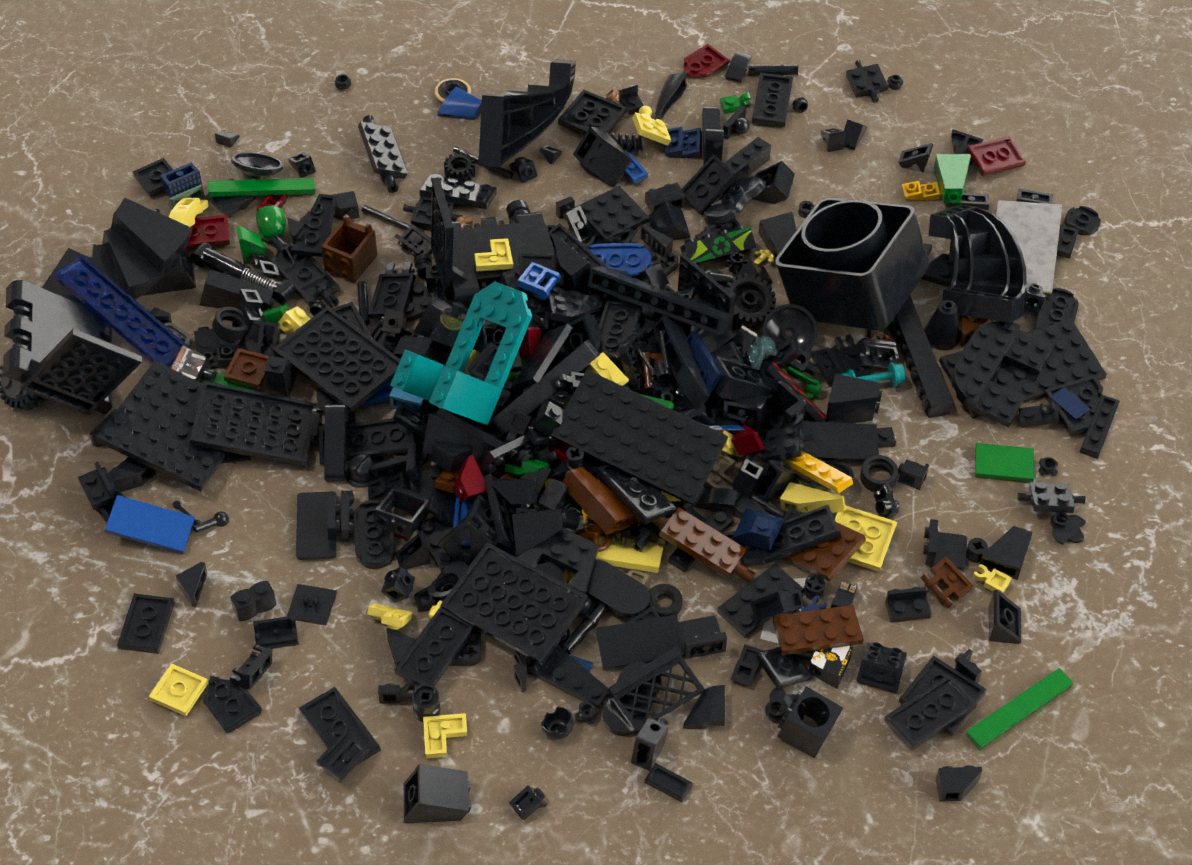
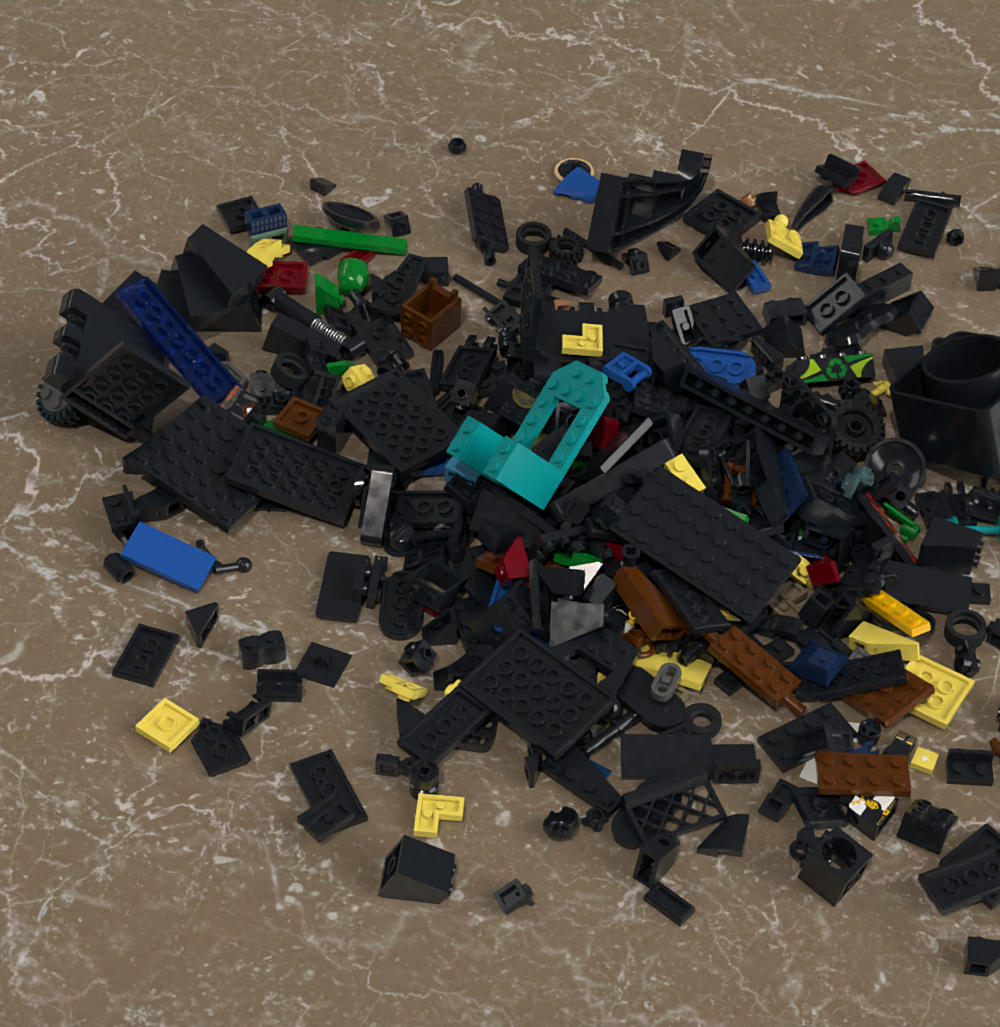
camera: 10 degrees right, 5 degrees down
(105, 542) = (118, 568): none -> black brick
(428, 151) = (533, 229): none -> black tyre
(627, 573) = (663, 685): none -> dark grey plate
(687, 57) = (839, 171): none -> black bracket
(867, 604) = (924, 760): none -> light yellow tile

